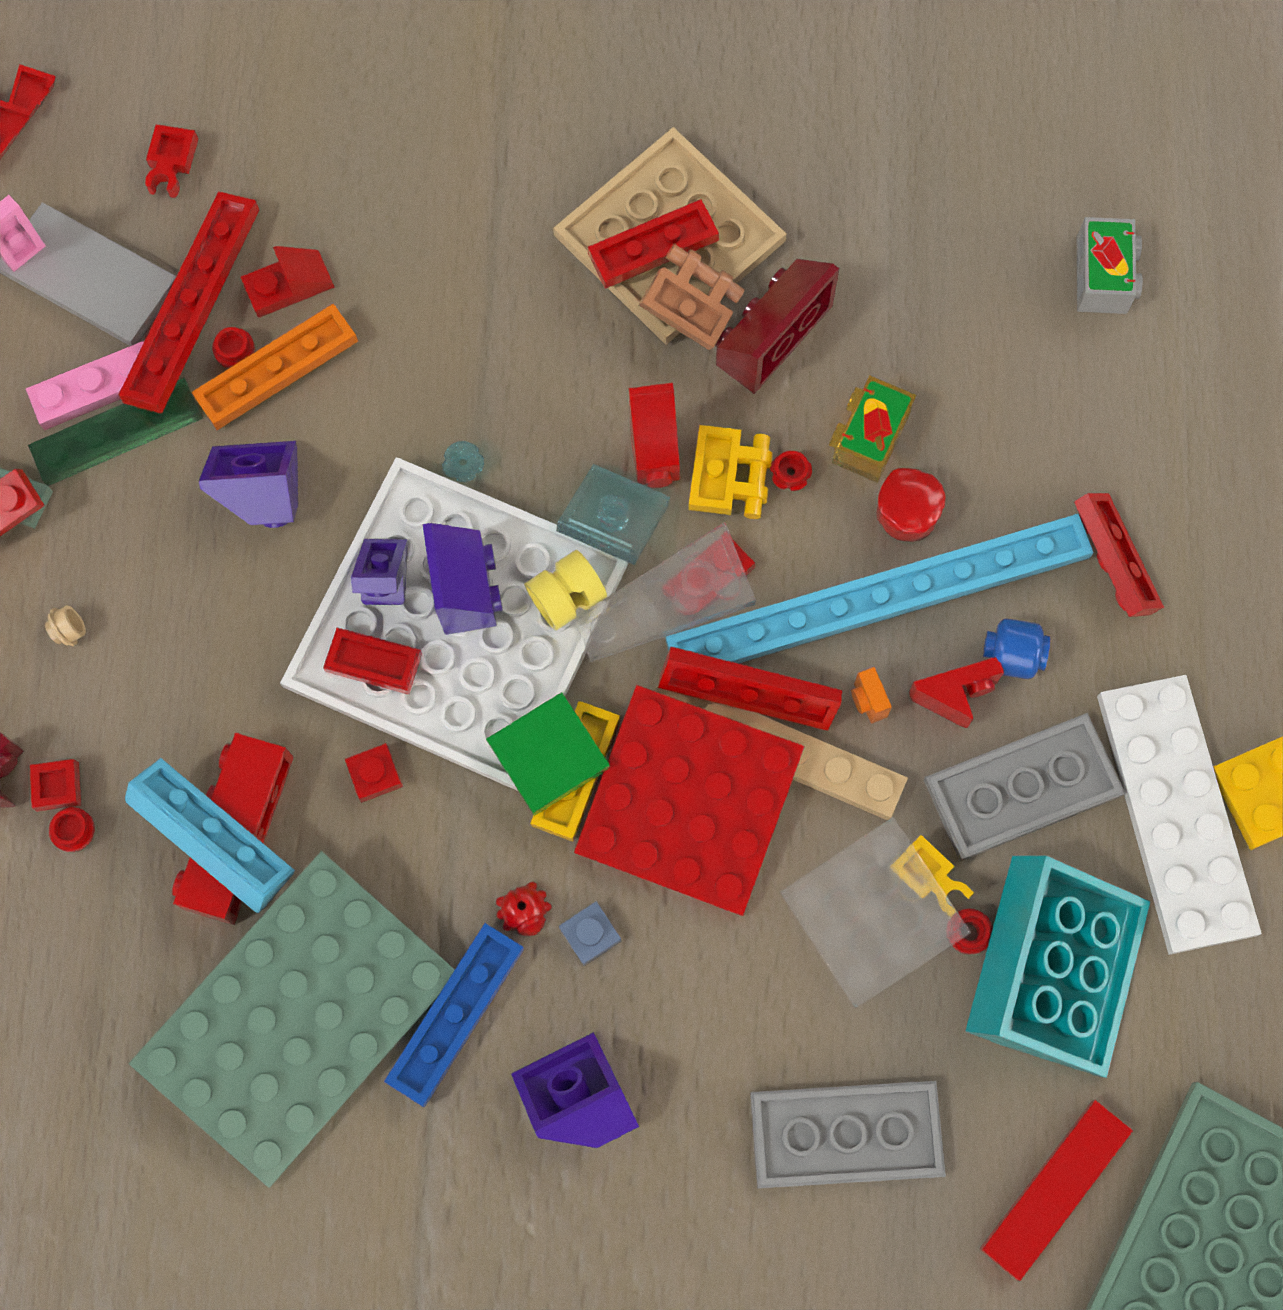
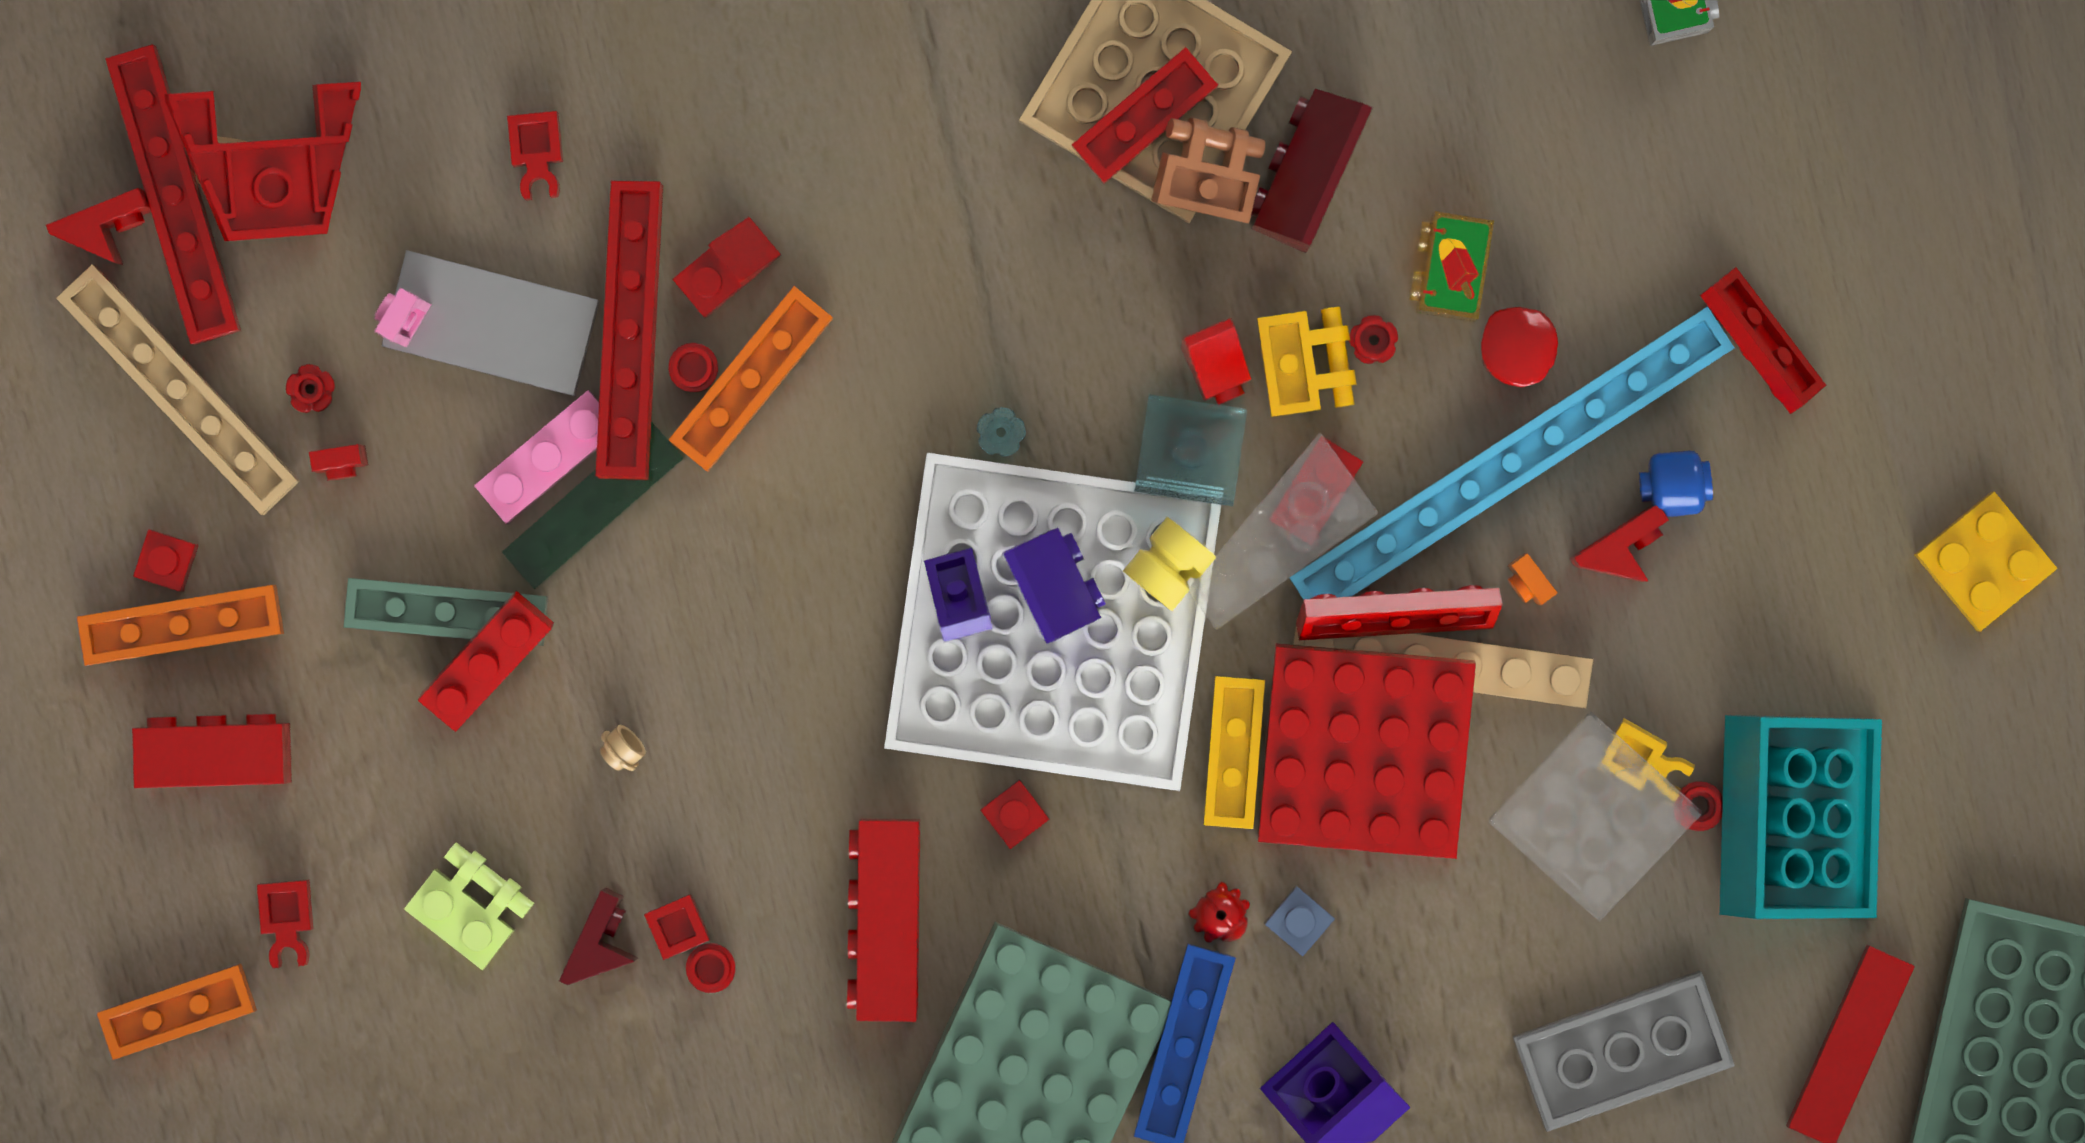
camera: 20 degrees left, 15 degrees up
(208, 834) = (870, 939): medium azure slope -> none
(254, 481) = (774, 523): dark purple slope -> none
(372, 660) = (979, 697): red tile -> none
(548, 753) = (1201, 747): green tile -> none
(1023, 786) = (1719, 631): light grey tile -> none
(1178, 815) = (1890, 614): white plate -> none

